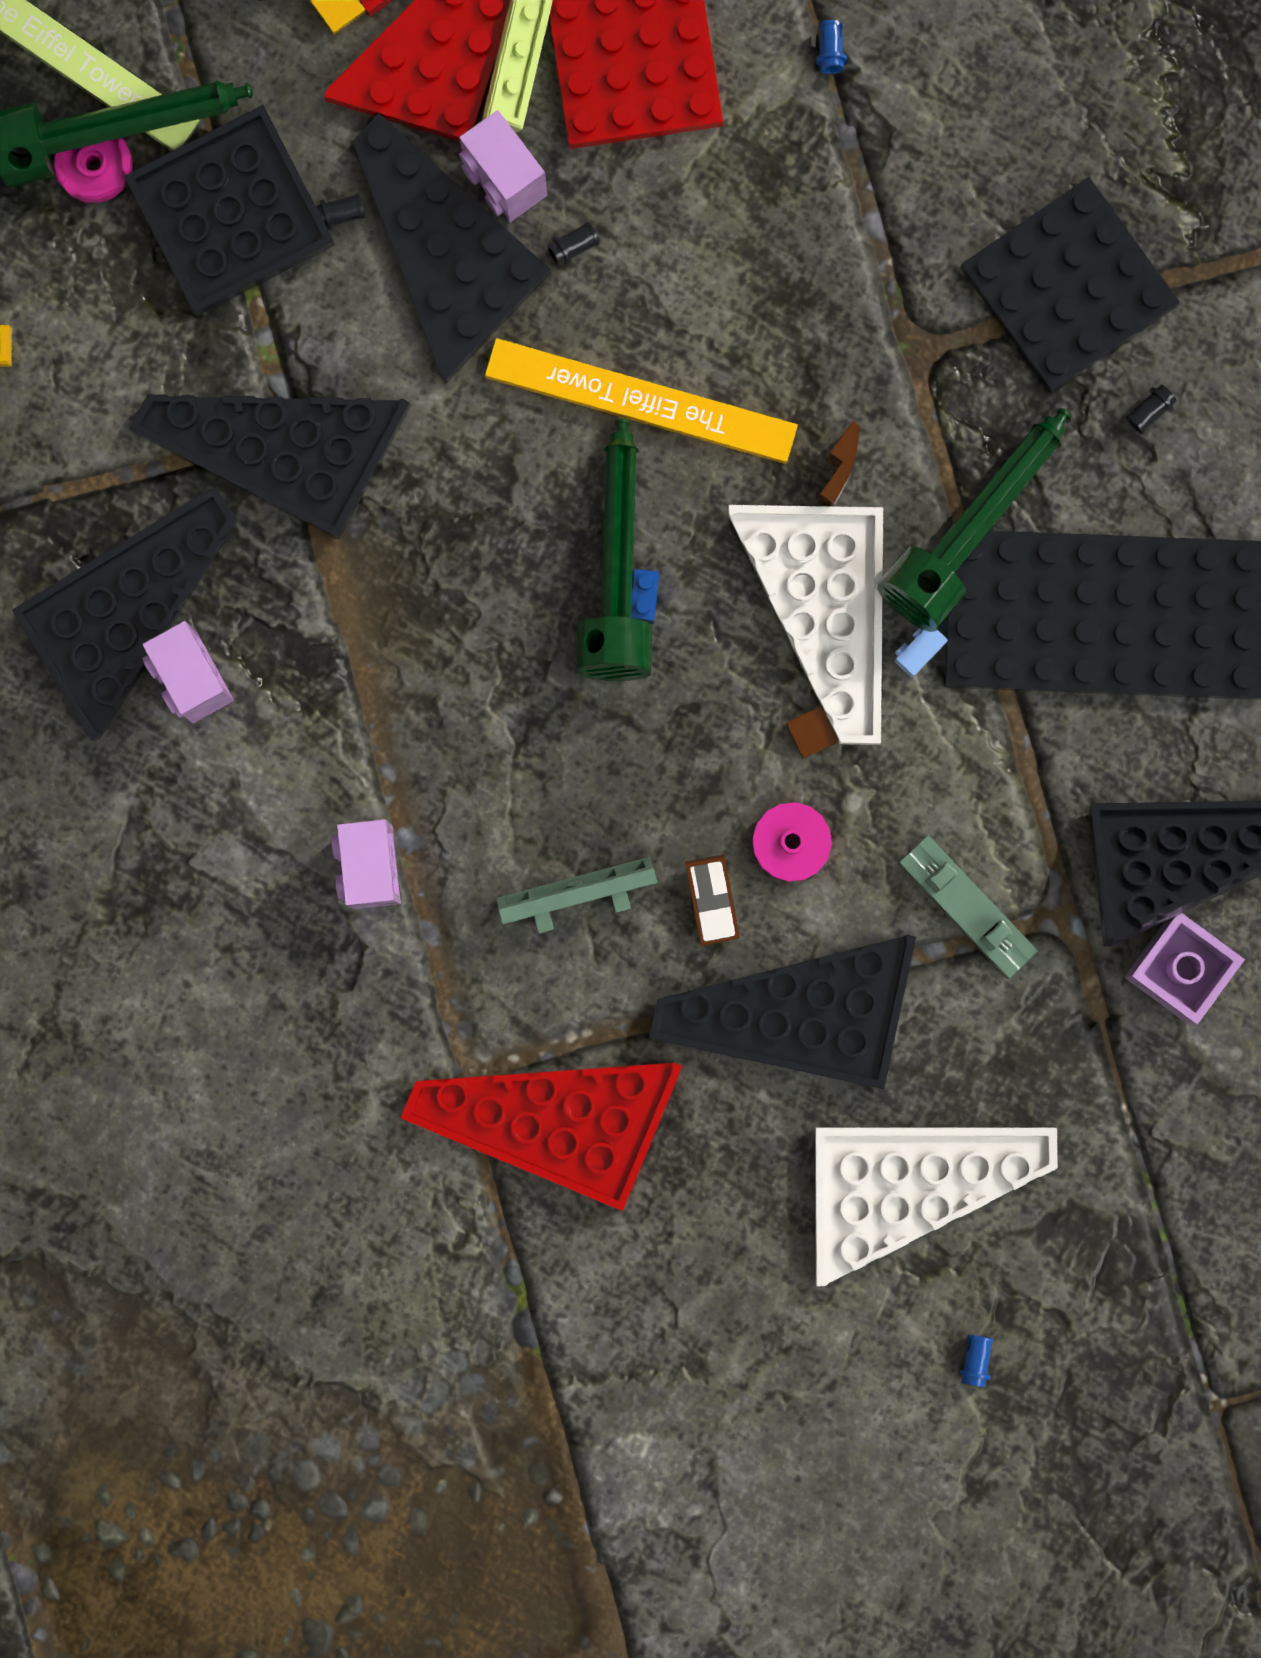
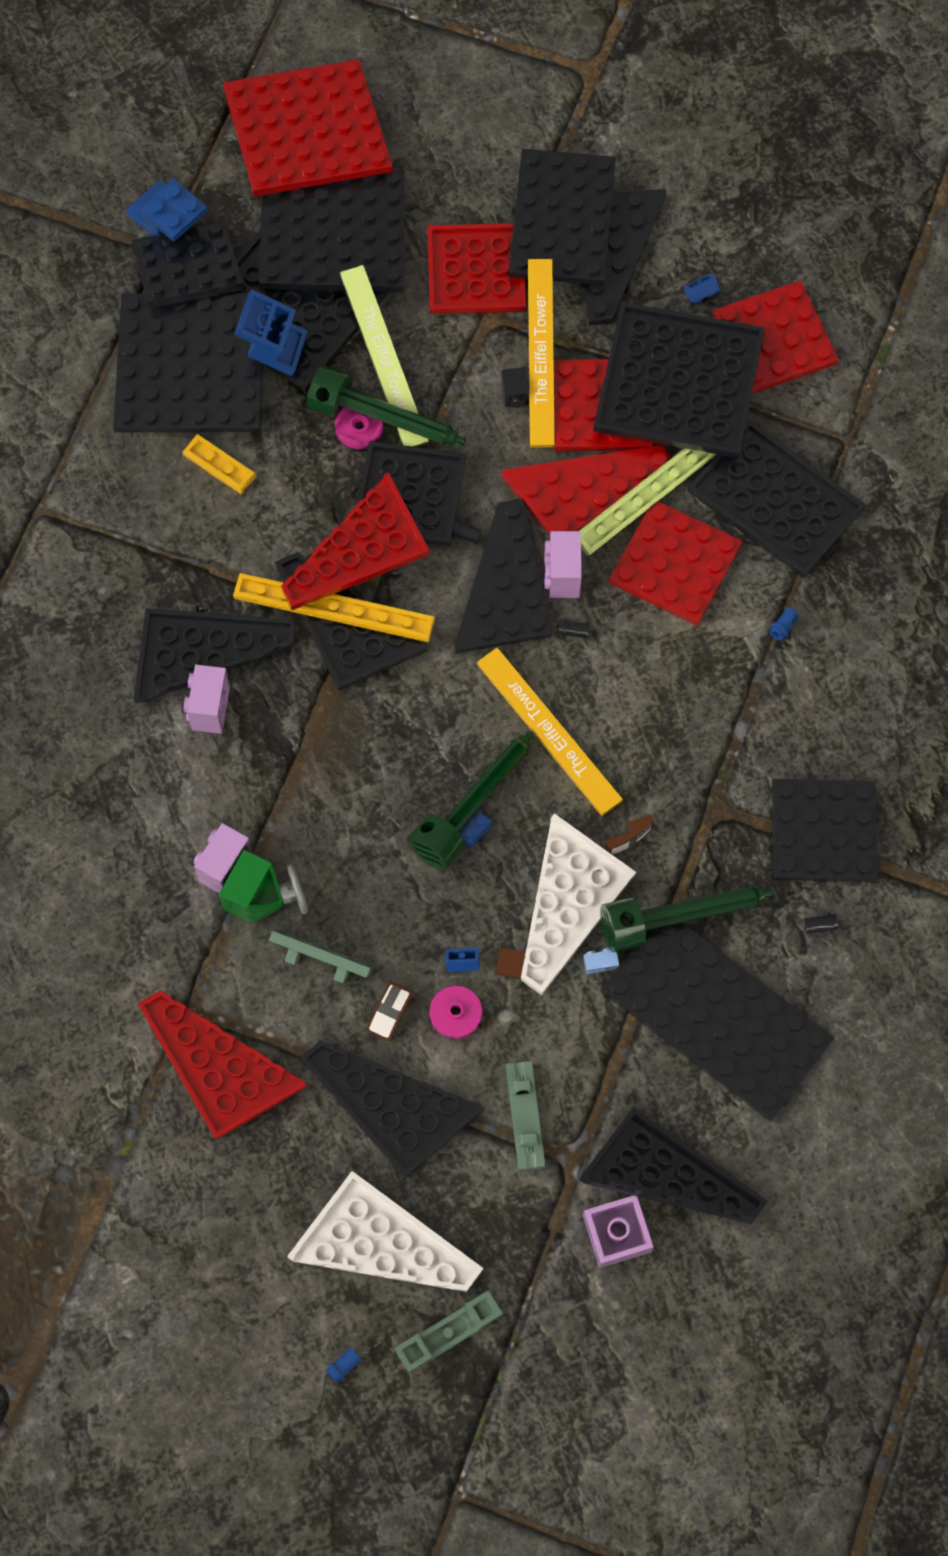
camera: 35 degrees right, 15 degrees down
(231, 324) = (368, 543): none -> red wing
(251, 435) = (339, 609): none -> yellow tile
(439, 874) = (254, 891): none -> green piece
(753, 772) = (462, 959): none -> blue piece
(1070, 1231) = (448, 1332): none -> sand green slope

